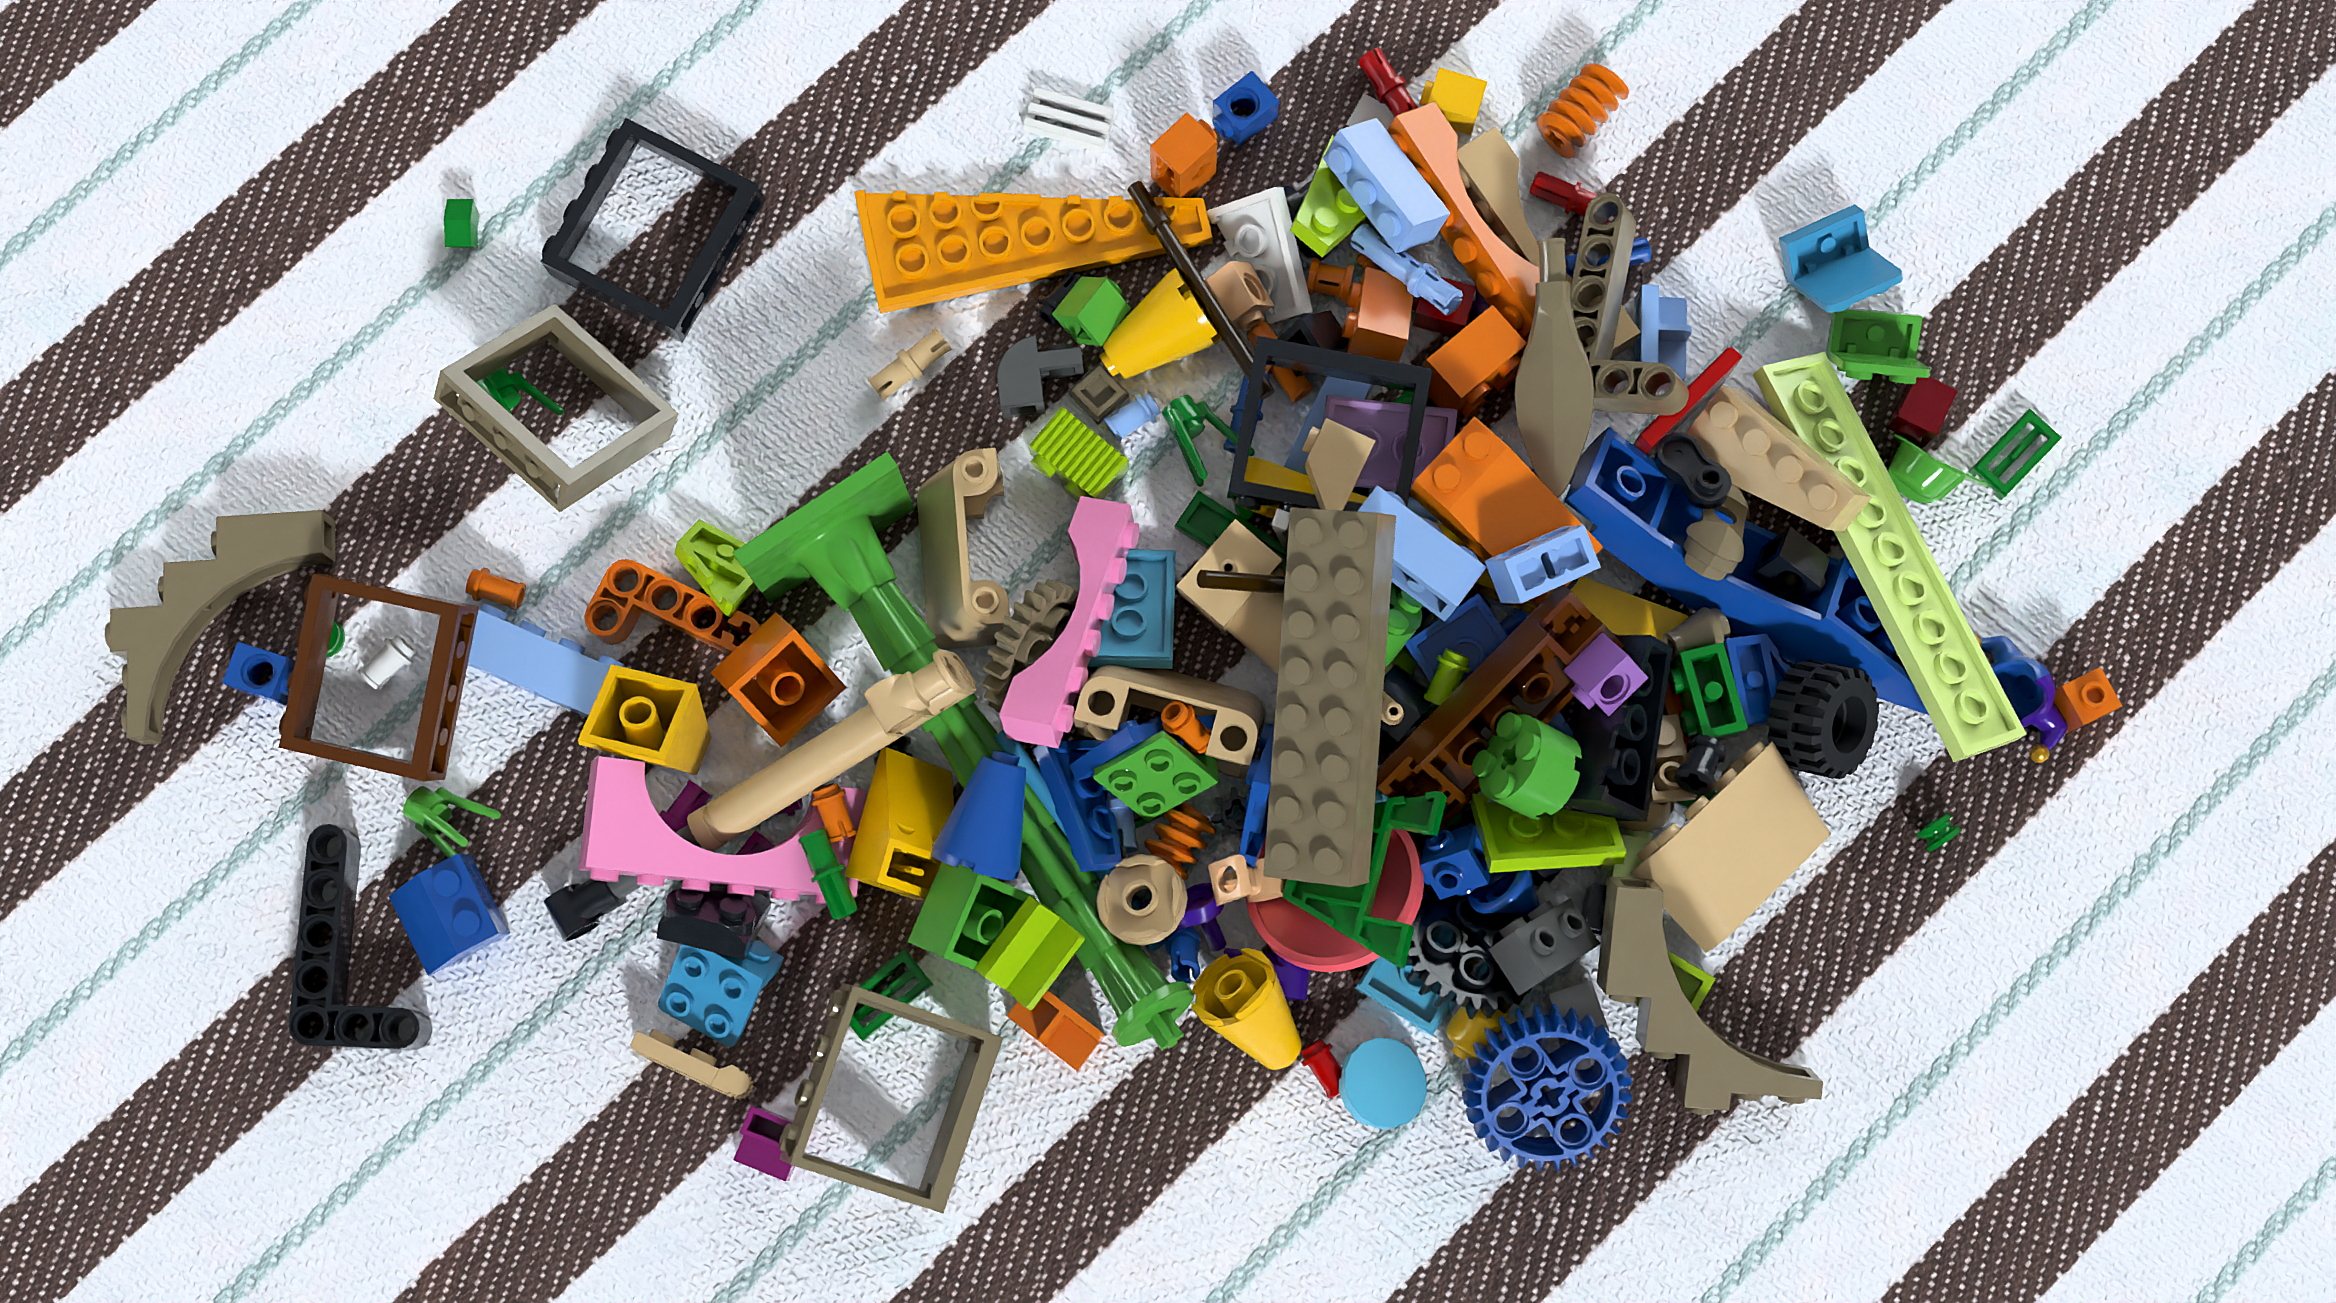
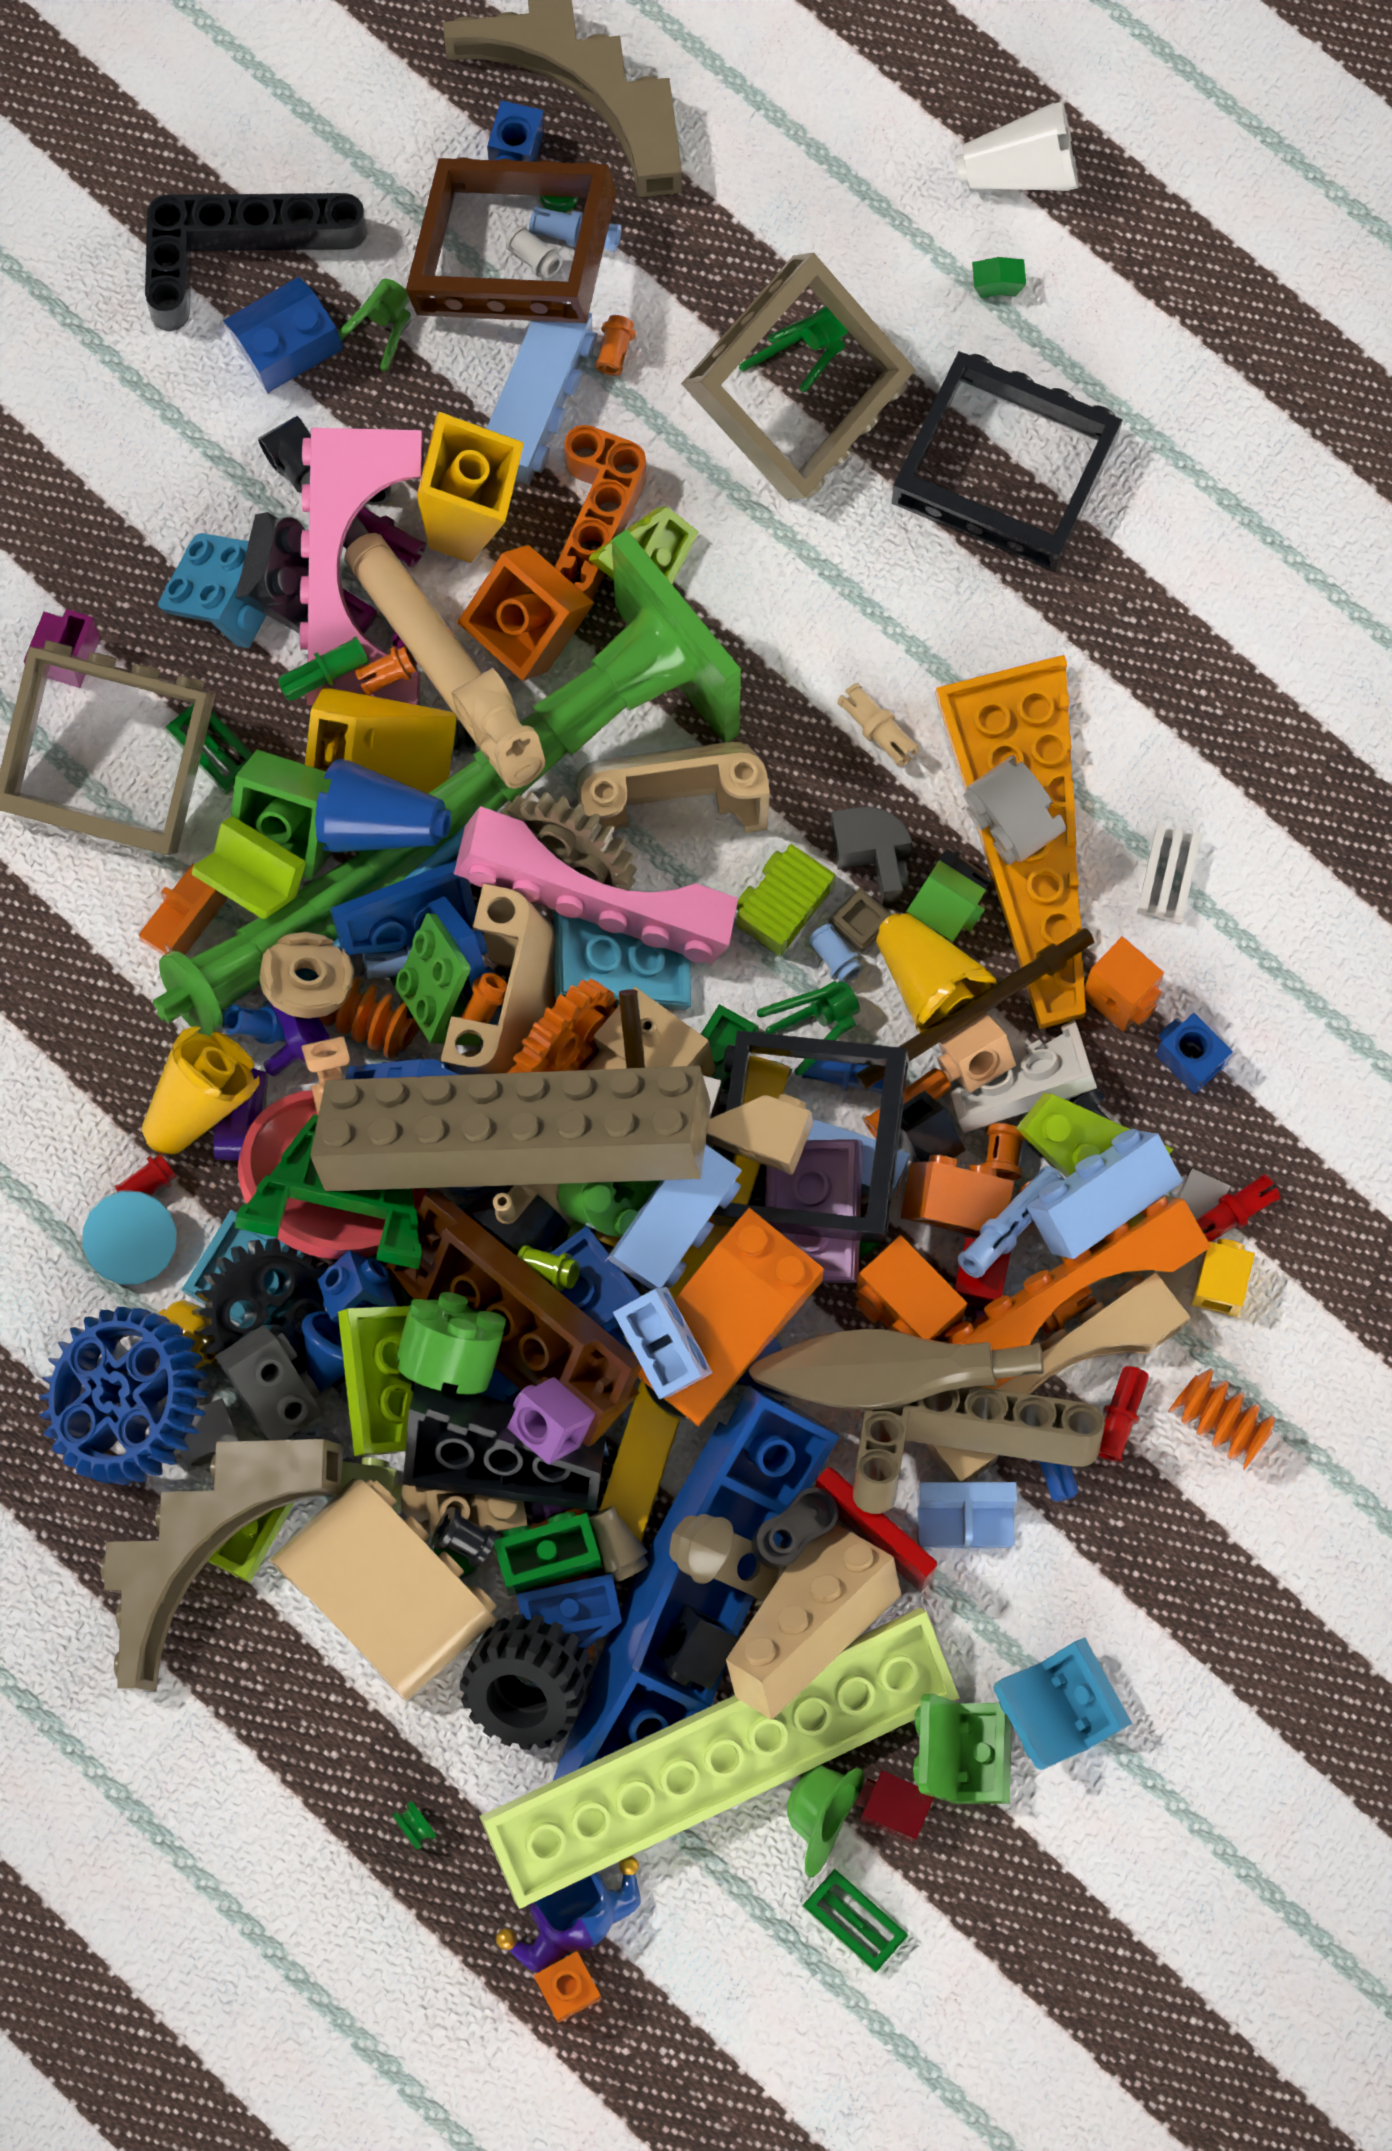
camera: 85 degrees right, 5 degrees down
(337, 188) = (1023, 154): none -> white cone
(364, 627) = (567, 227): none -> light blue pin
(696, 1065) = (136, 568): tan hinge -> none
(1015, 237) = (1014, 810): none -> light grey brick
(1226, 658) = (566, 1032): none -> orange gear

